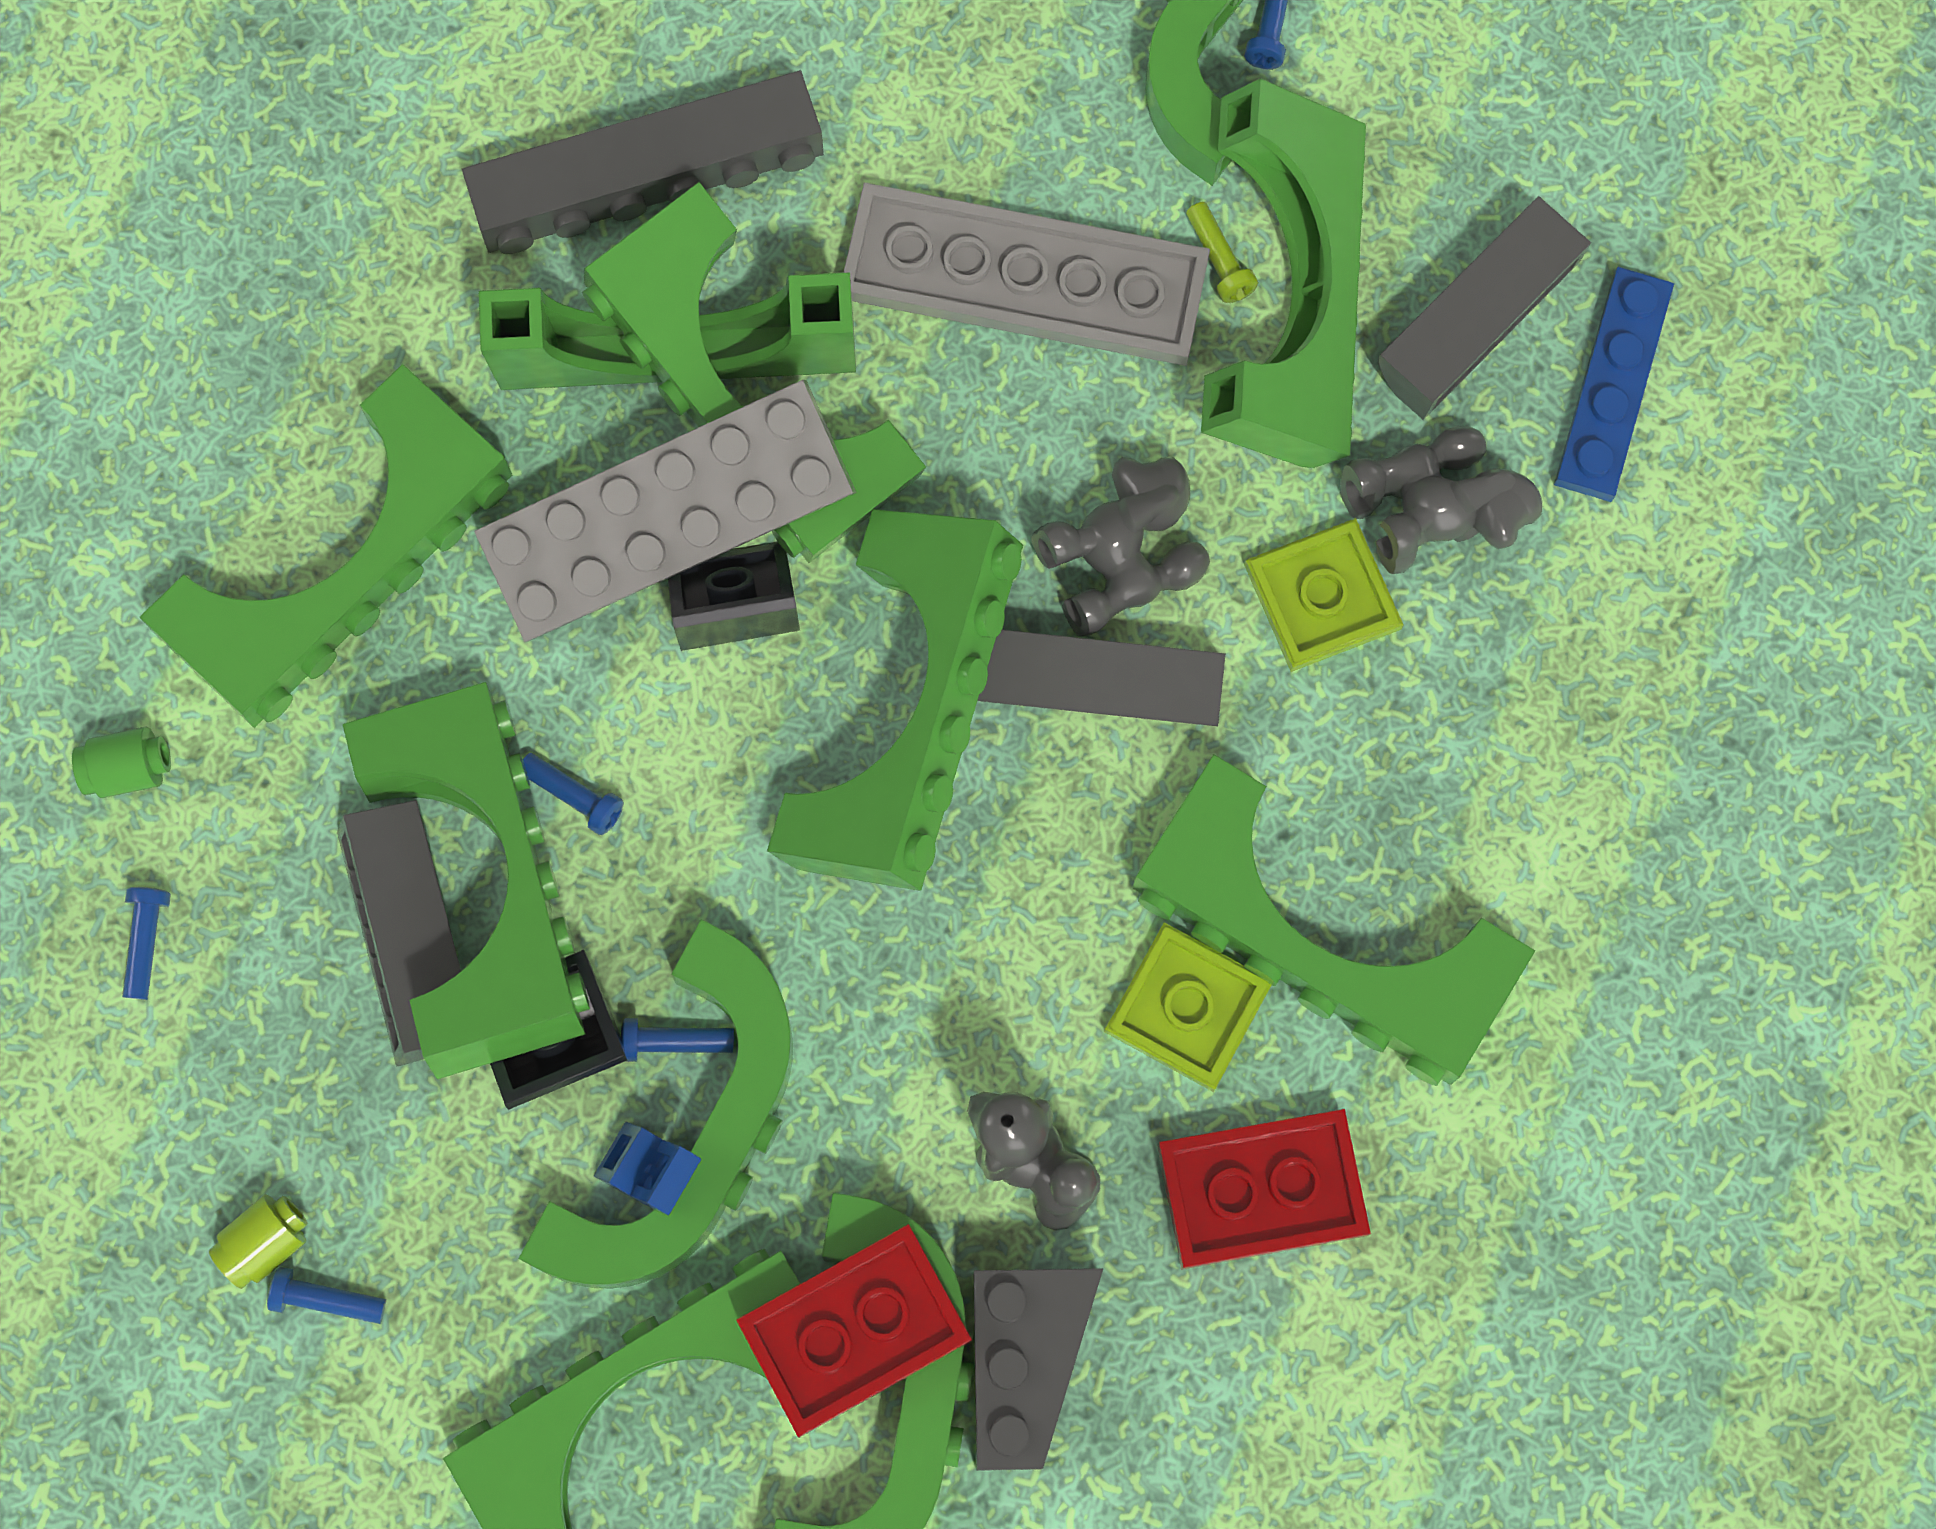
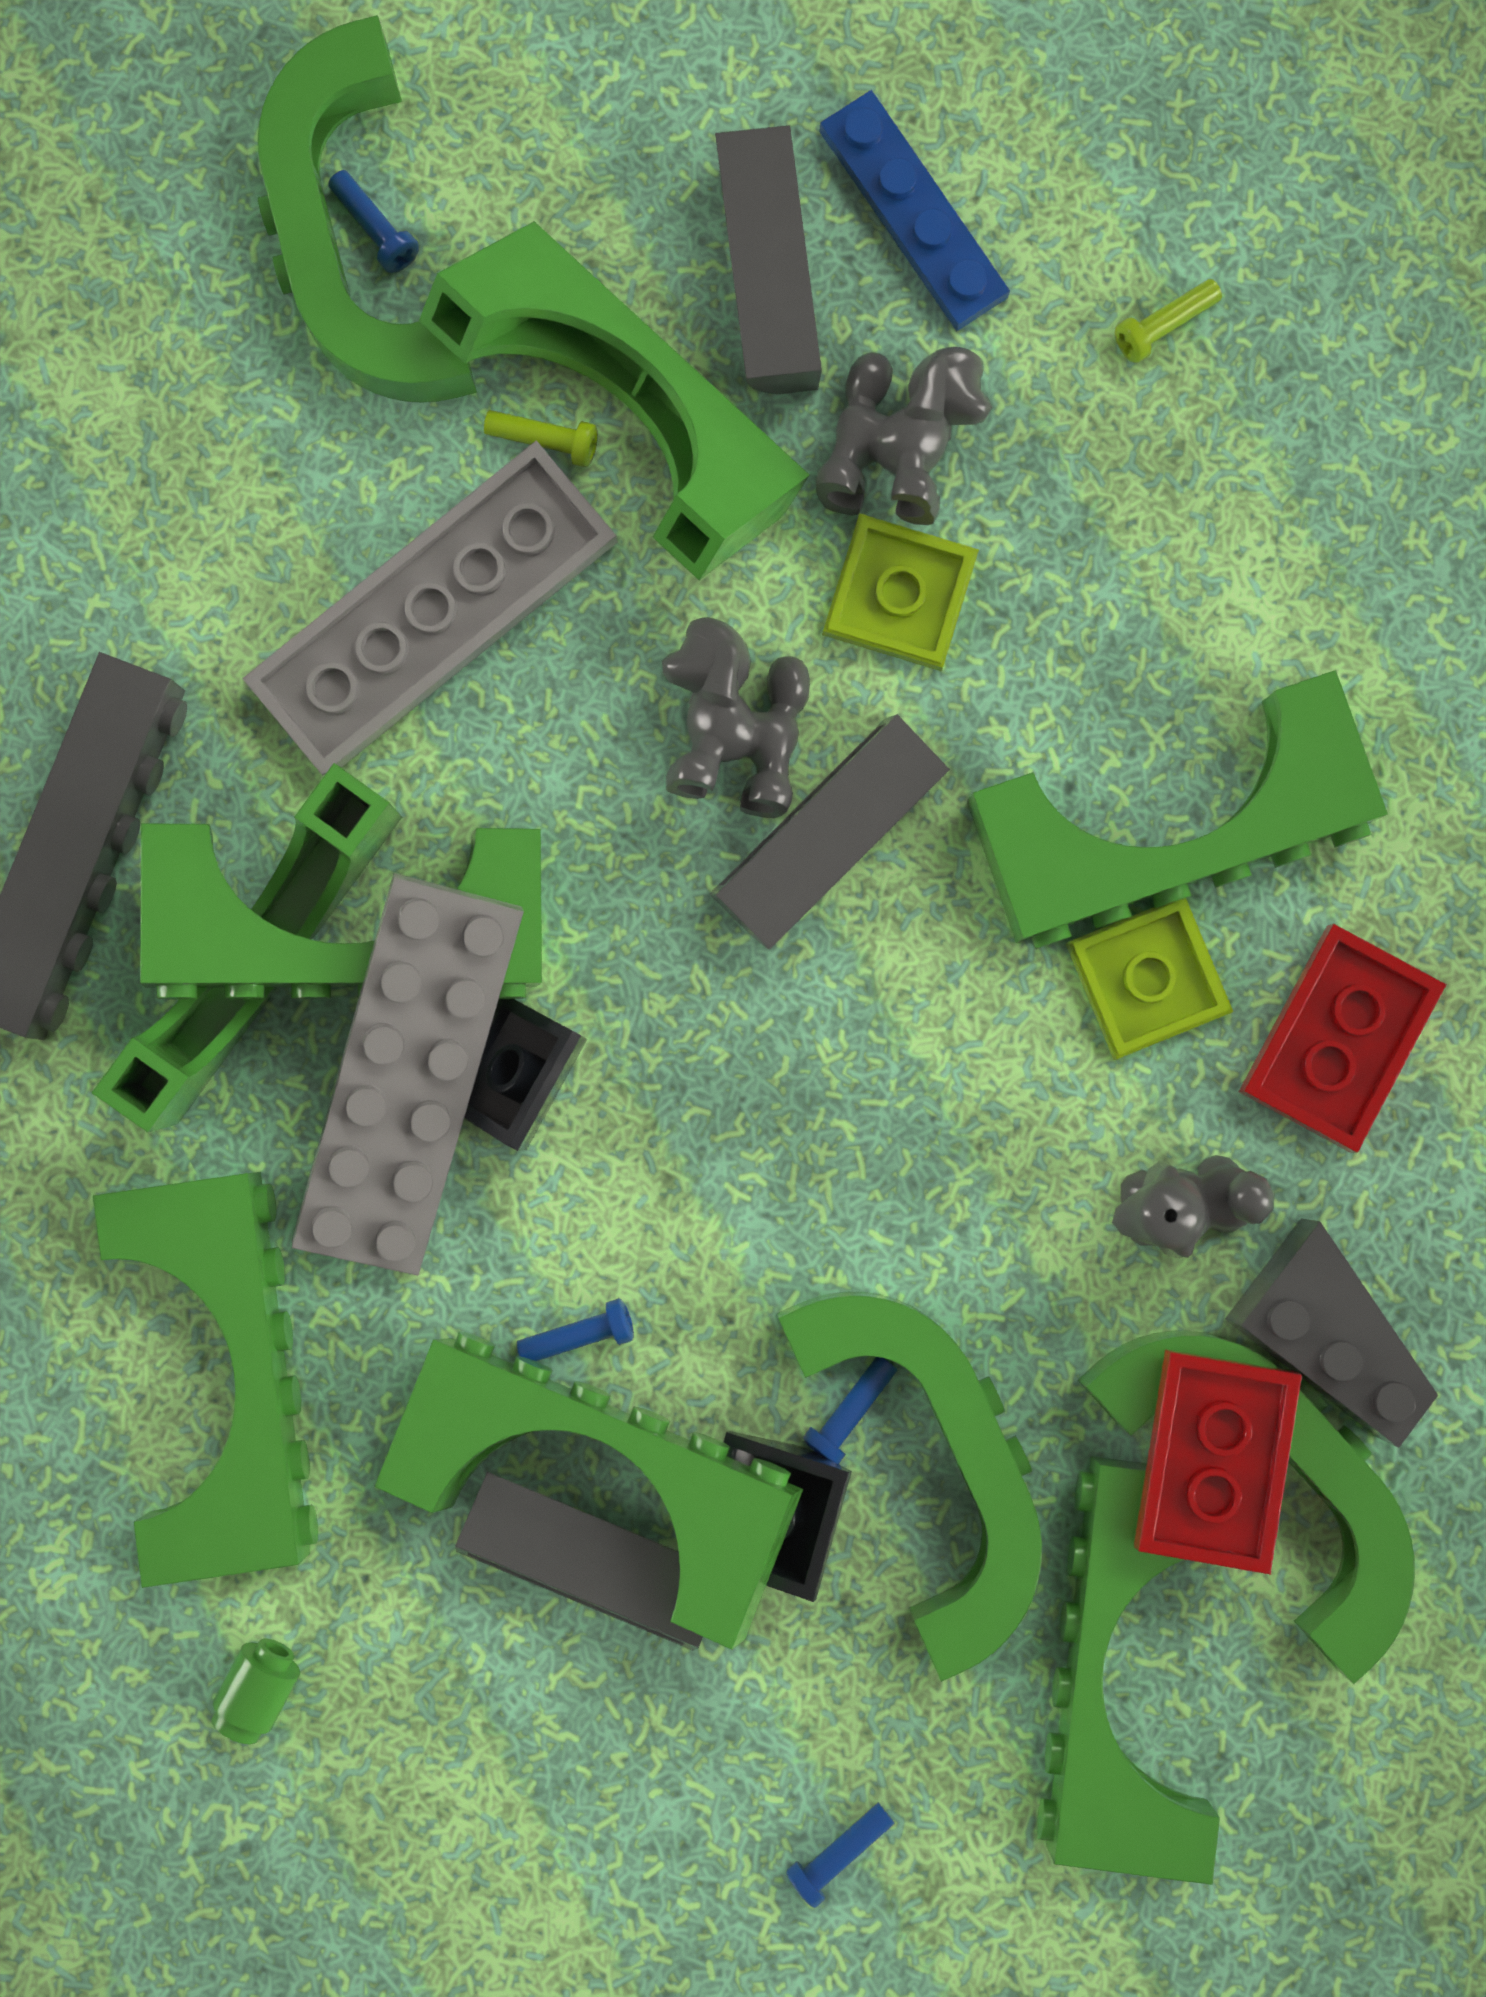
camera: 50 degrees left, 10 degrees up
(142, 938) = (418, 1779): blue piece -> none
(259, 1240) = (753, 1874): lime brick -> none
(647, 1167) = (947, 1519): blue slope -> none
(890, 815) = (818, 1095): bright green arch -> none
(1662, 616) = (1136, 337): none -> lime piece

